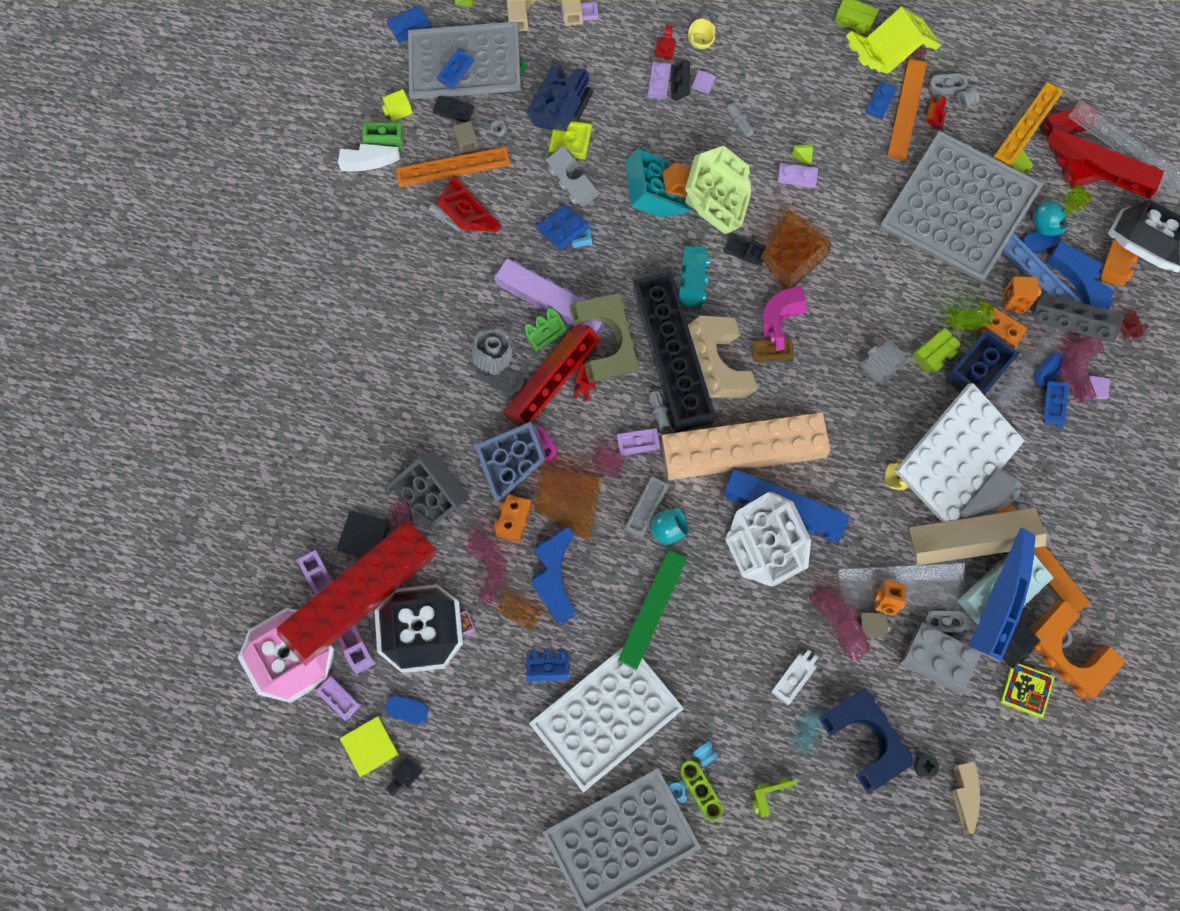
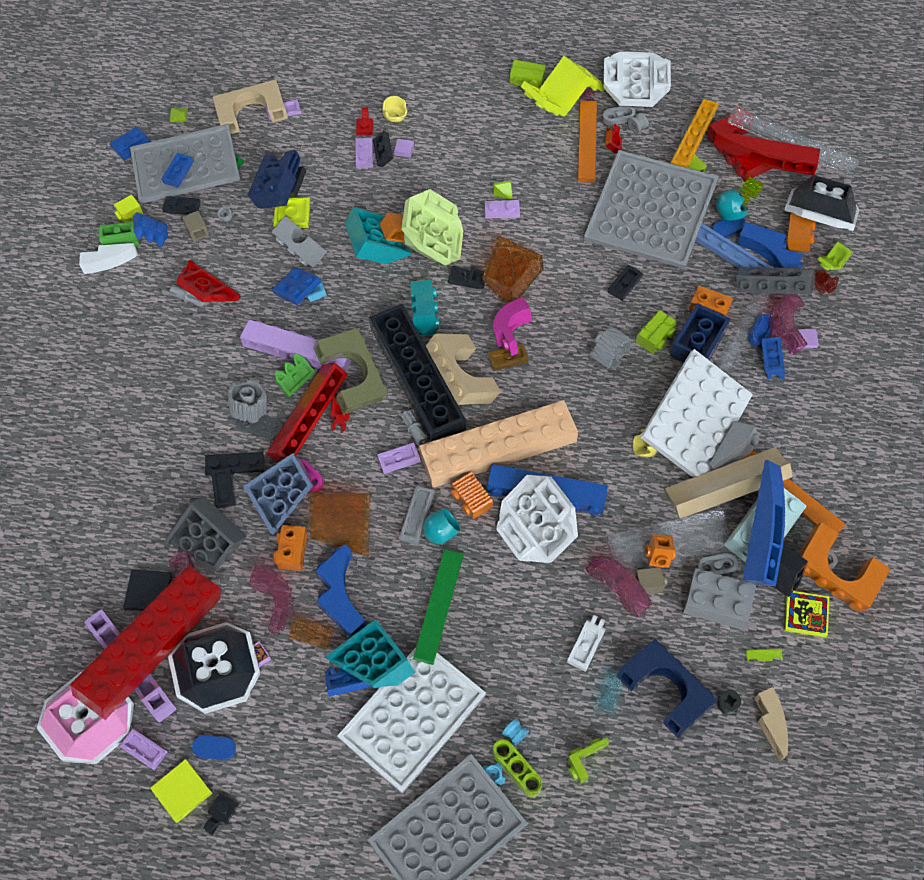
camera: 10 degrees left, 10 degrees down
(417, 133) = (150, 229): none -> blue plate
(452, 166) = (187, 252): orange tile -> none
(453, 440) = (223, 488): none -> black tile
(468, 415) = (237, 462): none -> black plate
(576, 653) = (372, 657): none -> teal wedge
(609, 462) = (374, 481): clear pink brick -> none
(706, 497) = (471, 495): none -> orange brick
(739, 119) = (441, 172): light grey axle -> none
(881, 99) = (563, 137): blue plate -> none
(914, 287) = (625, 282): none -> black plate
(971, 318) = (680, 298): clear neon green hinge -> none
(973, 724) = (764, 655): none -> lime piece
(978, 43) = (636, 78): none -> white piece
(1021, 294) = (720, 270): orange brick -> none
(1151, 300) = (836, 258): none -> lime bracket

